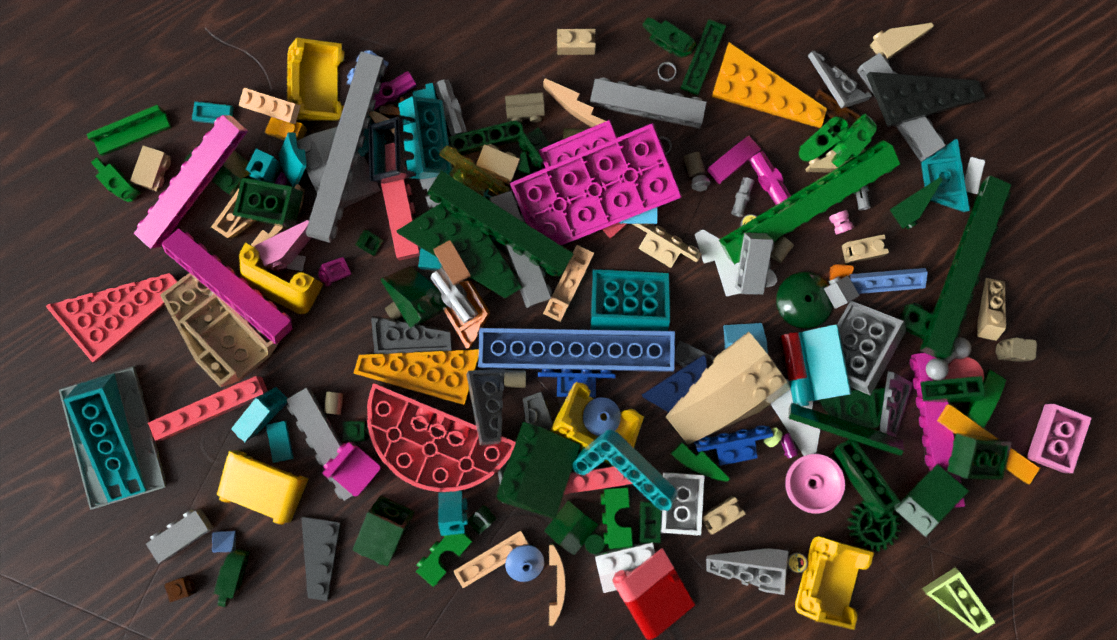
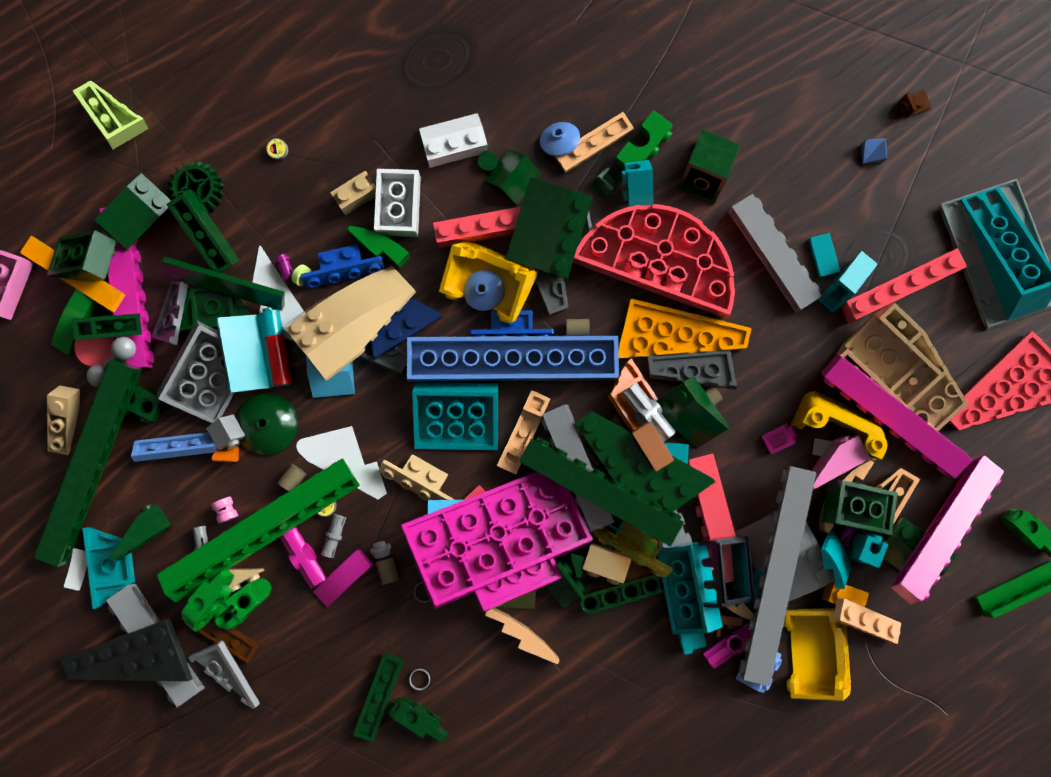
camera: 175 degrees right, 0 degrees up
(150, 169) = (992, 546): tan brick -> none
(179, 535) = (921, 155): light grey brick -> none
(210, 112) = (929, 613): teal tile -> none
(231, 576) = (863, 116): dark green piece -> none
(260, 487) = (840, 206): yellow windscreen -> none
(320, 549) = (773, 148): dark grey wing -> none
(333, 403) = (770, 296): dark tan piece -> none
(352, 468) = (746, 224): dark pink bracket -> none
(355, 431) = (745, 268): dark green bracket -> none
(369, 242) = (743, 472): dark green slope -> none
(451, 107) = (661, 627): light grey piece -> none
(486, 396) = (607, 303): dark grey wing -> none
(525, 107) = (578, 630): dark tan brick -> none
(555, 608) = (526, 96): light nougat slope -> none
(575, 41) = (523, 710): tan brick -> none
(616, 535) = (463, 170): green arch -> none
(630, 464) = (452, 235): teal beam -> none
(648, 103) = (440, 640): light grey brick -> none
(649, 522) = (430, 183): dark green brick -> none
(653, 594) = (425, 109): red door -> none
(754, 263) = (320, 458): light grey brick -> none
(757, 87) = (319, 664): light orange wing -> none
(758, 567) = (313, 142): light grey wedge -> none
(828, 483) = (245, 221): bright pink dish -> none
(830, 582) = (243, 129): yellow windscreen -> none
(864, 249) = (199, 480): tan brick -> none
(897, 39) = (157, 725): tan slope -> none
(1016, 350) = (37, 373): dark tan brick -> none

